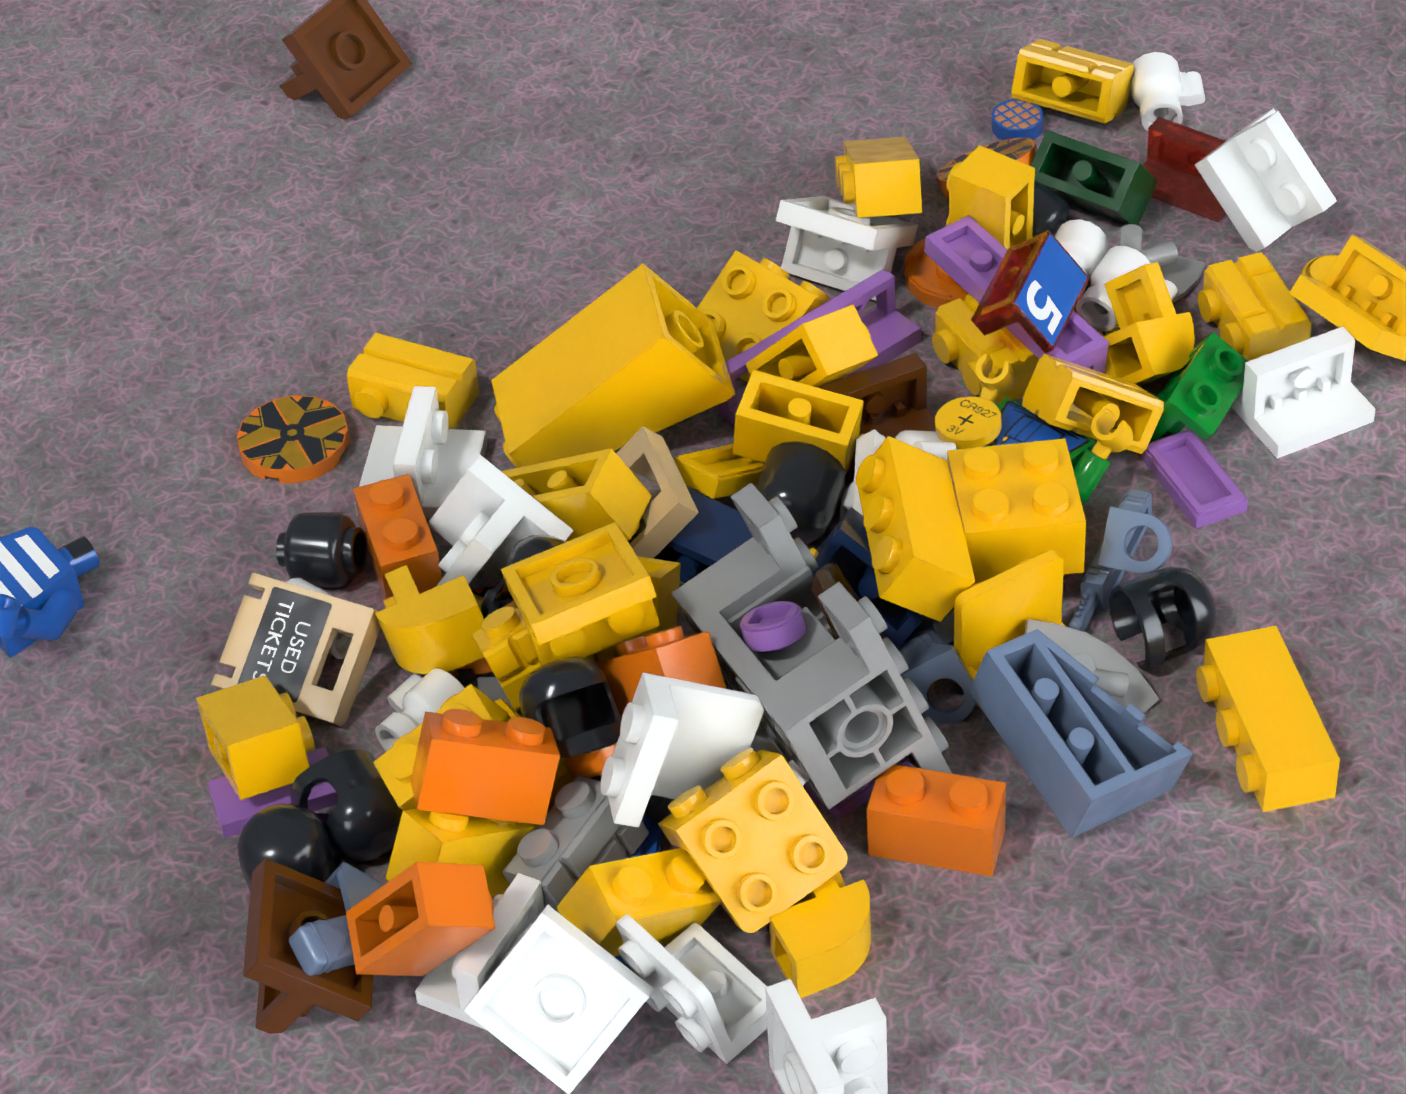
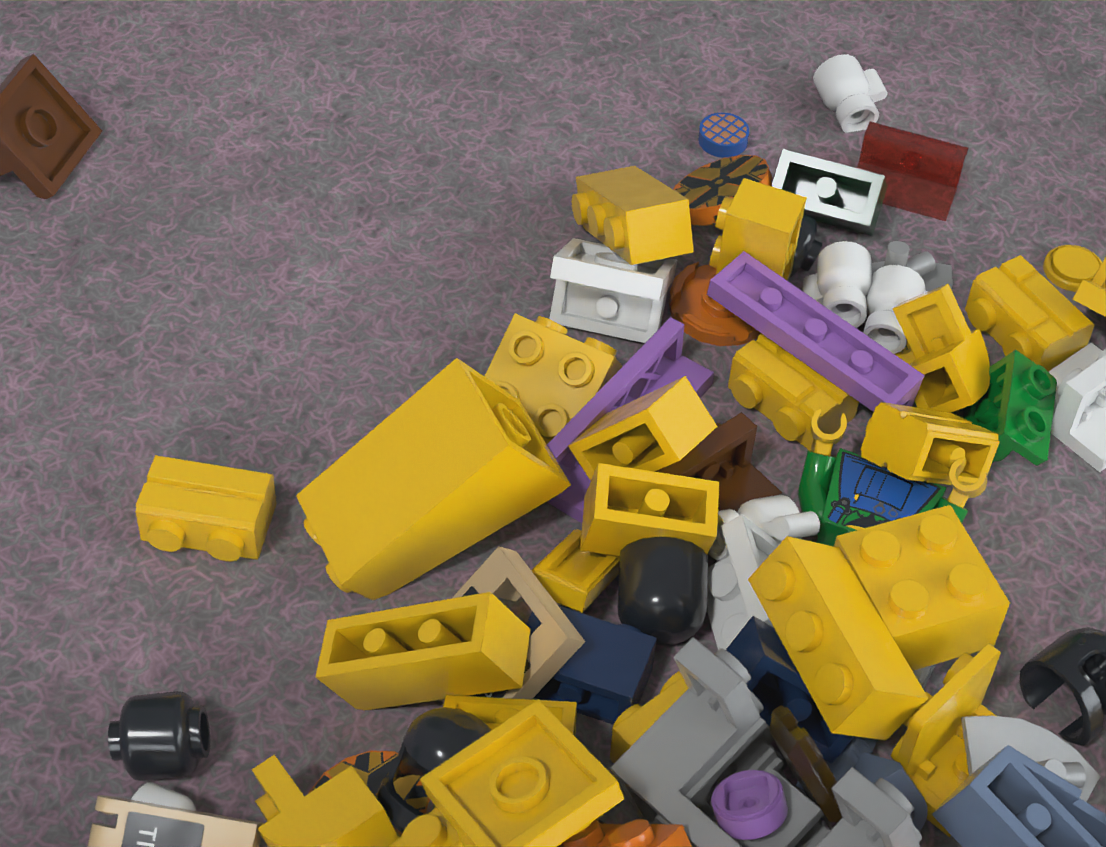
camera: 20 degrees left, 5 degrees up
(293, 438) = (86, 590): tile -> none
(397, 532) = (246, 709): orange brick -> none
(424, 450) = (241, 609): white bracket -> none
(486, 520) = (361, 697): white bracket -> none
(968, 422) = (818, 485): yellow piece -> none
(1034, 287) = (839, 331): panel -> none
(1072, 80) = (768, 90): yellow brick -> none
(1115, 551) = (1017, 622): sand blue piece -> none
(1194, 479) = (1036, 509): medium lavender tile -> none
(1265, 181) = (996, 176): white bracket -> none

